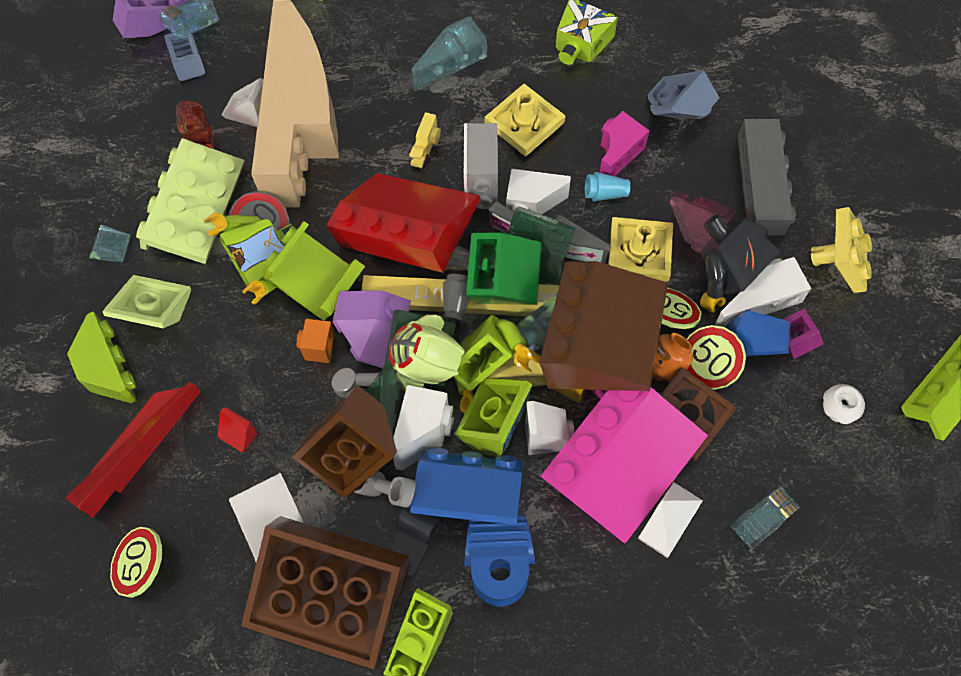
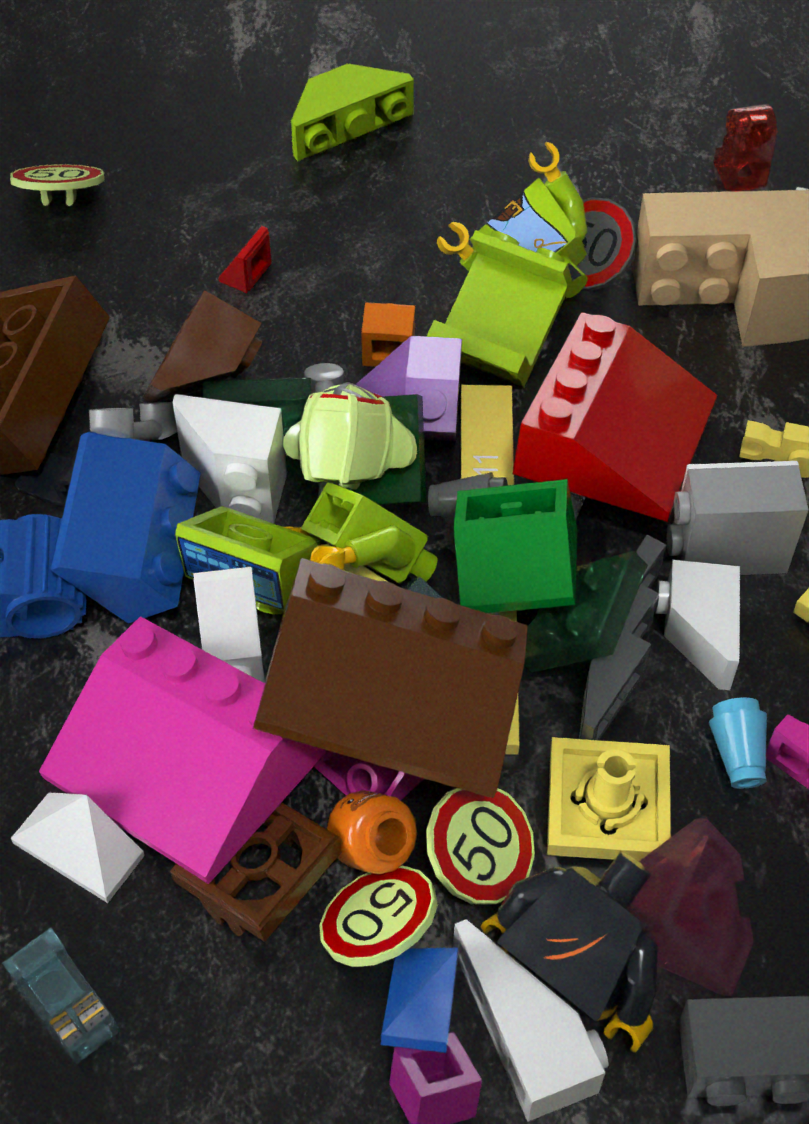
camera: 85 degrees right, 10 degrees down
(109, 244) = (538, 95): clear light blue slope -> none
(132, 448) = (218, 158): red wedge -> none
(149, 302) = (441, 145): yellowish green slope -> none
(191, 190) = (624, 157): yellowish green bracket -> none
(261, 506) = (136, 314): white sticker -> none

